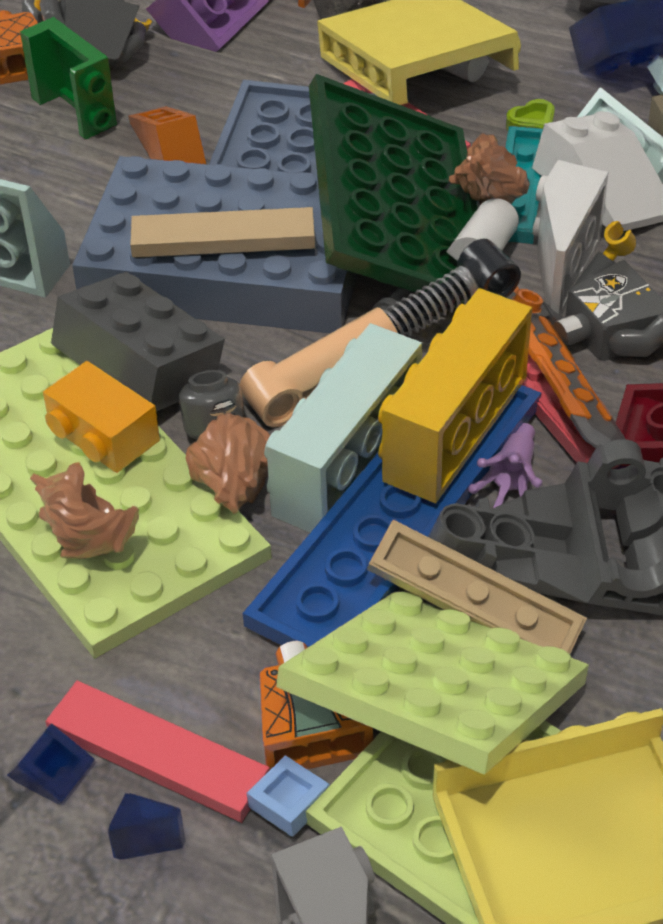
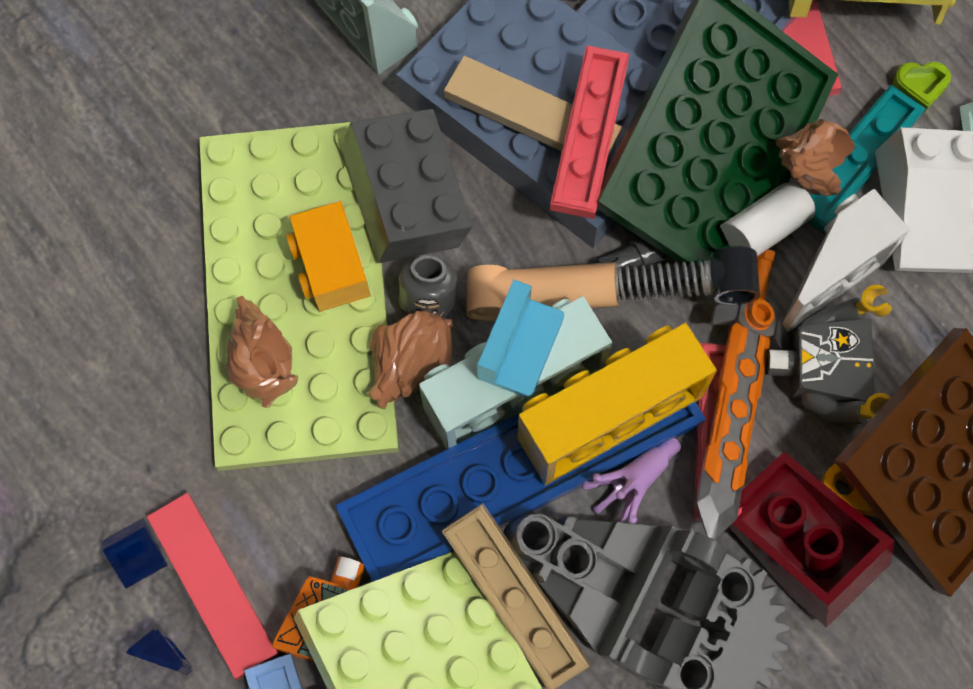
camera: 30 degrees right, 25 degrees up
(288, 218) = (589, 132): none -> coral tile
(339, 370) = (519, 342): none -> medium azure panel

